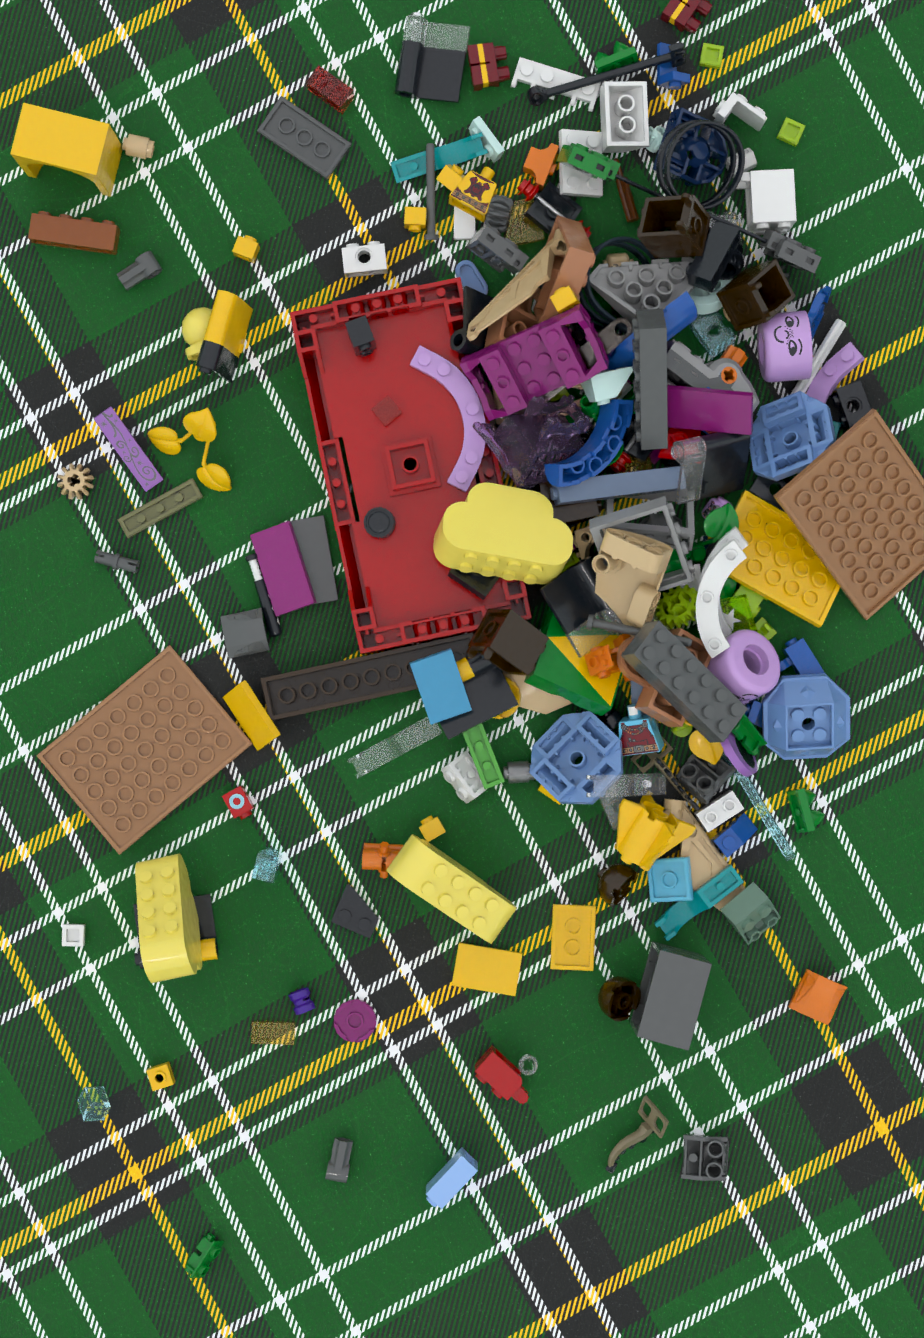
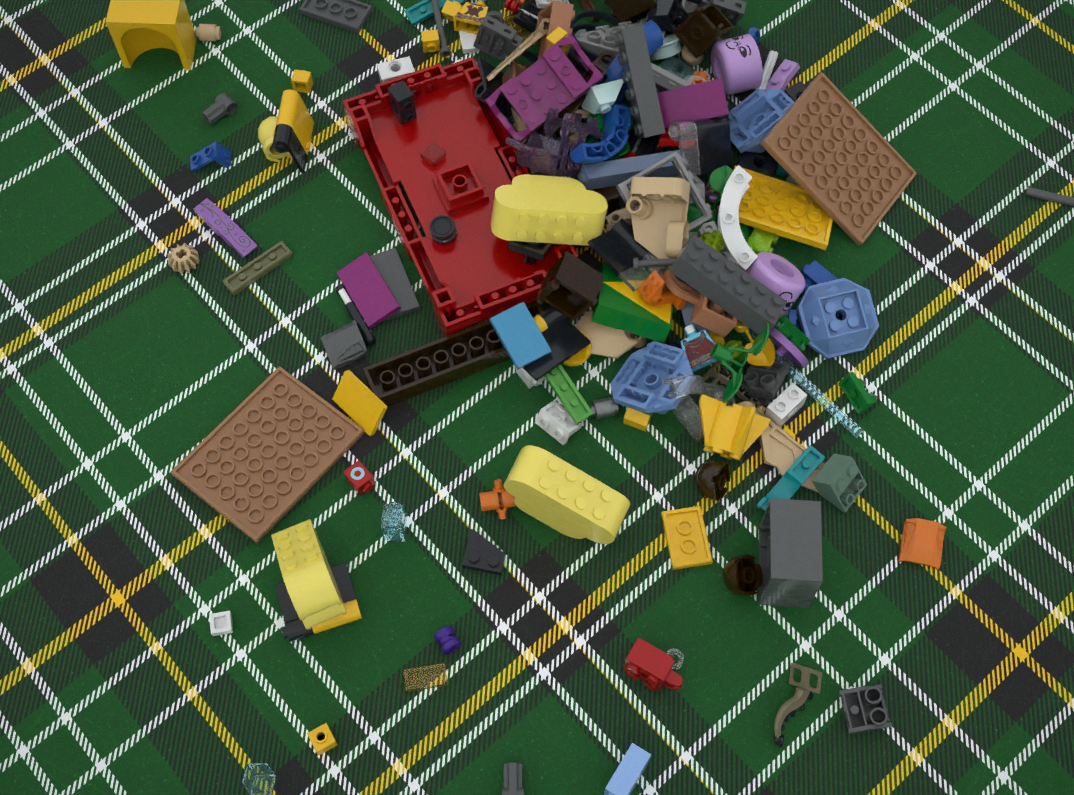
camera: 10 degrees left, 25 degrees down
(74, 233) = (164, 93): dark orange brick -> none
(117, 561) = (225, 311): dark grey pin -> none
(121, 341) = (213, 152): none -> blue bracket
(204, 429) = (280, 183): yellow plant -> none
(354, 1020) = (501, 651): magenta tile -> none
(394, 746) = (485, 409): clear piece -> none
(469, 407) = (491, 131): lavender plate -> none
(487, 969) = (615, 580): yellow tile -> none
(661, 759) = (726, 356): none -> green plant
(670, 880) = (760, 469): medium azure tile -> none
(734, 835) = (804, 424): blue slope -> none

